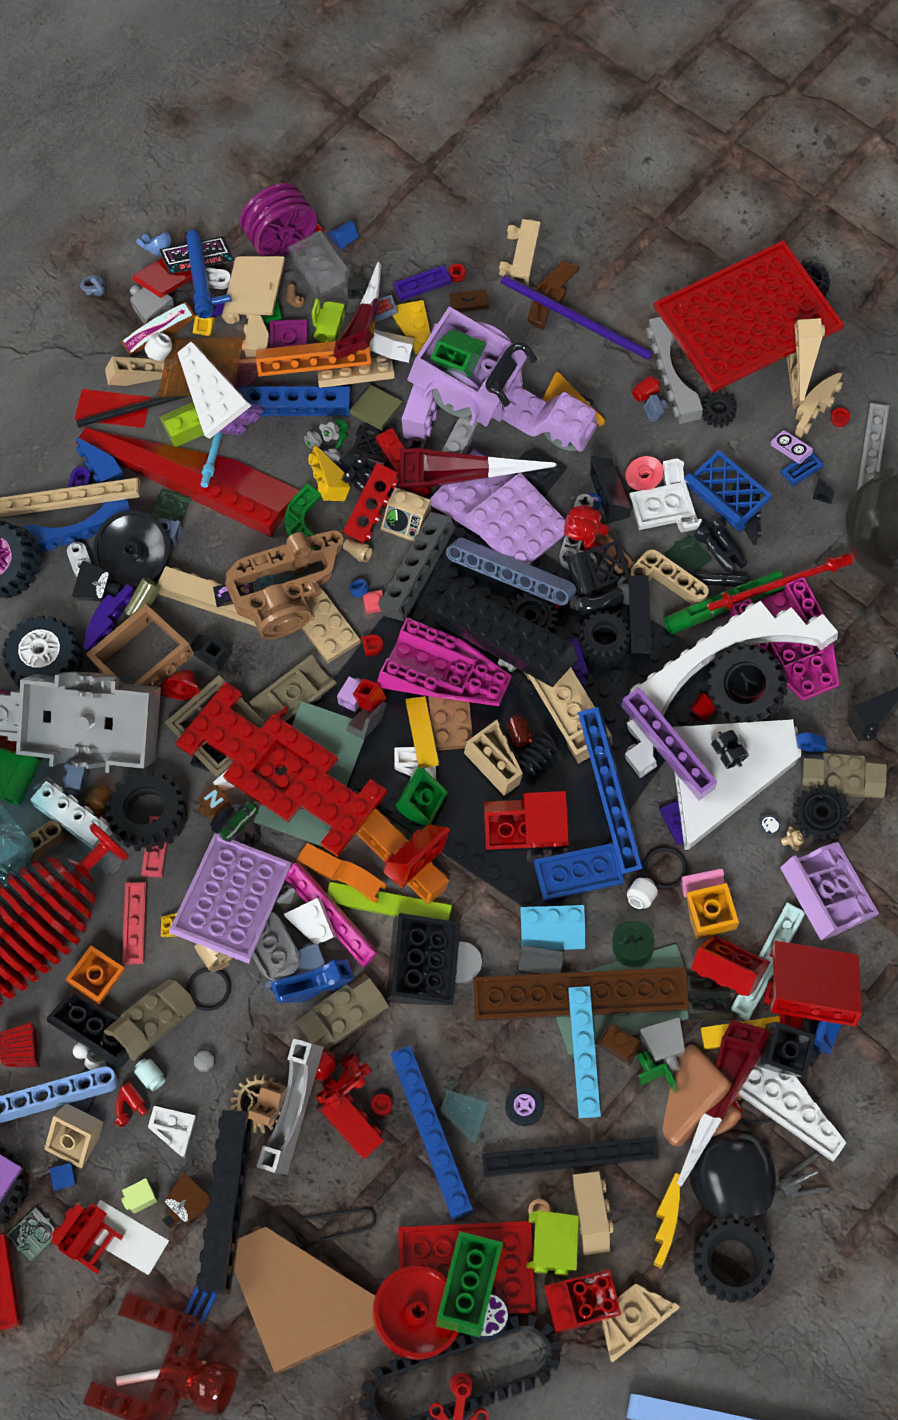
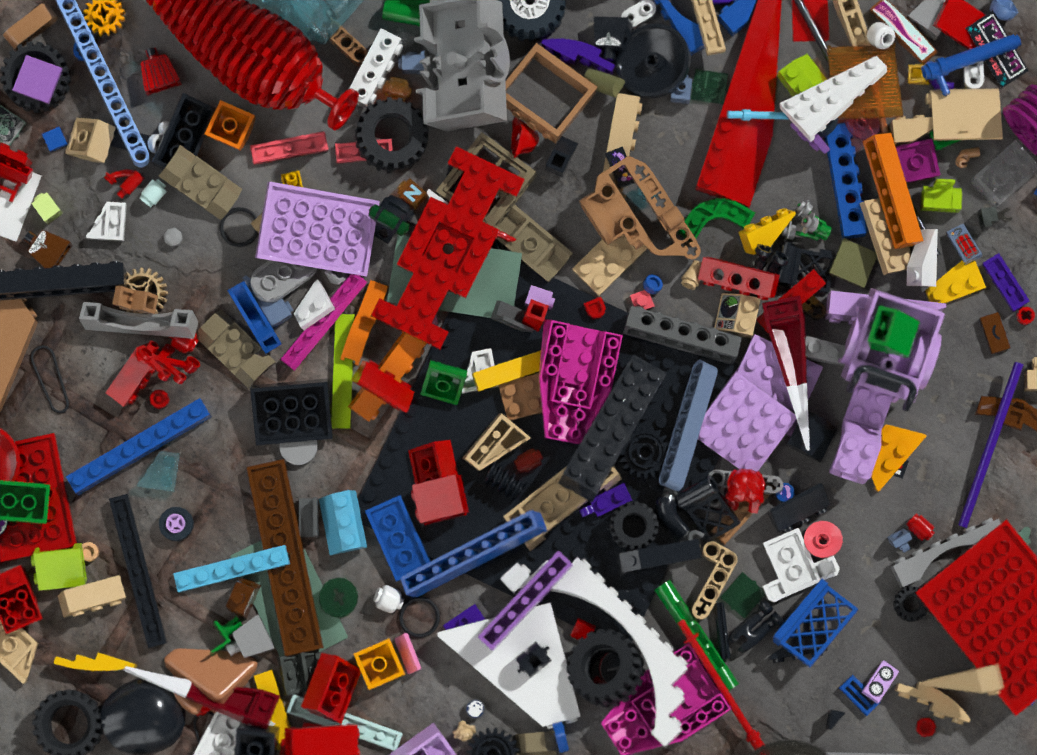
camera: 75 degrees right, 15 degrees up
(362, 325) = (924, 230): dark red plate -> none

